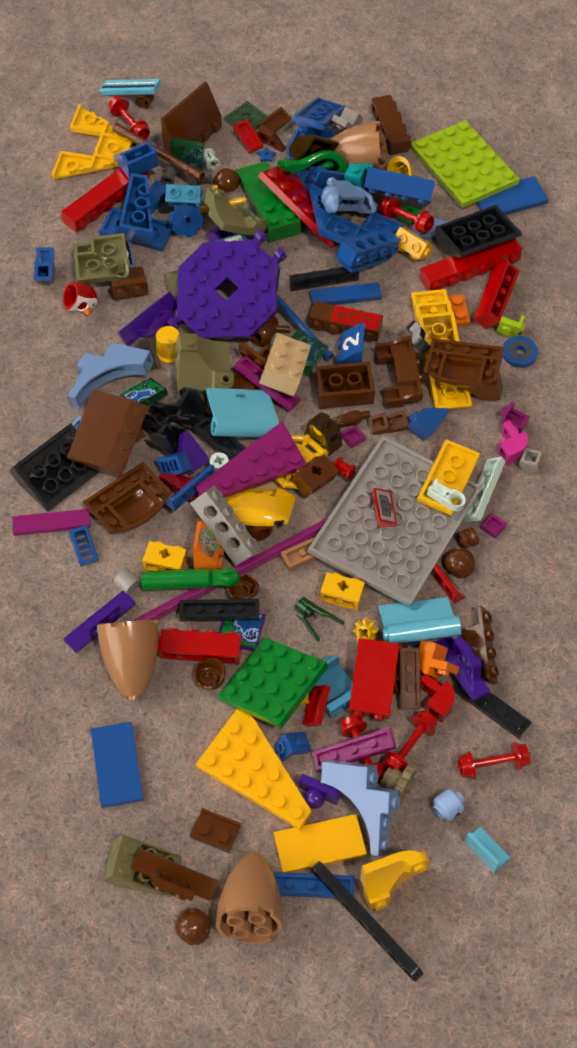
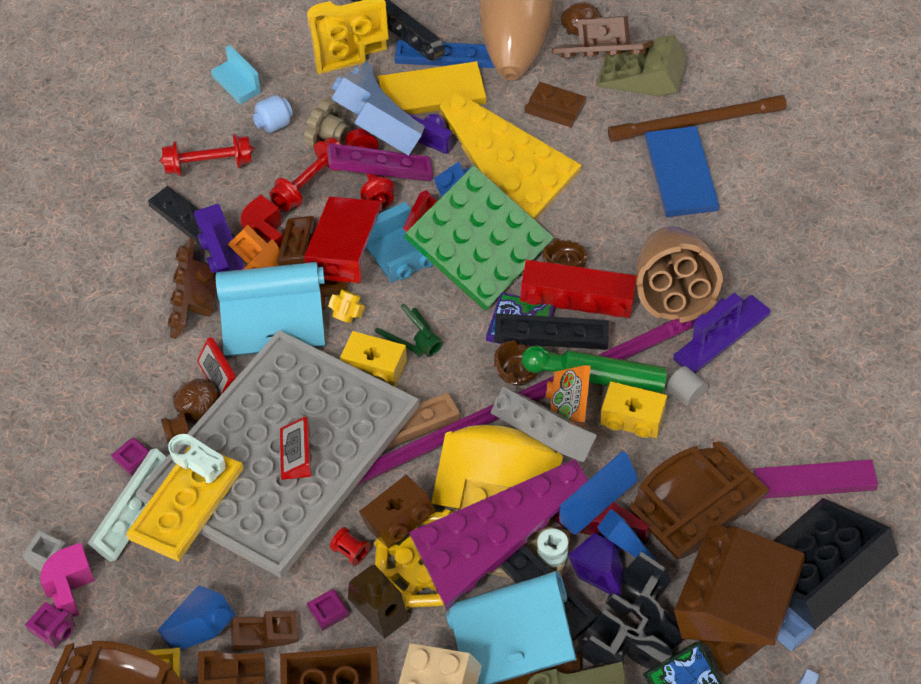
camera: 175 degrees left, 5 degrees down
(44, 830) = (763, 106): none -> reddish brown piece
(76, 532) = (765, 457): blue slope -> none
(351, 418) = (332, 636): reddish brown piece -> none

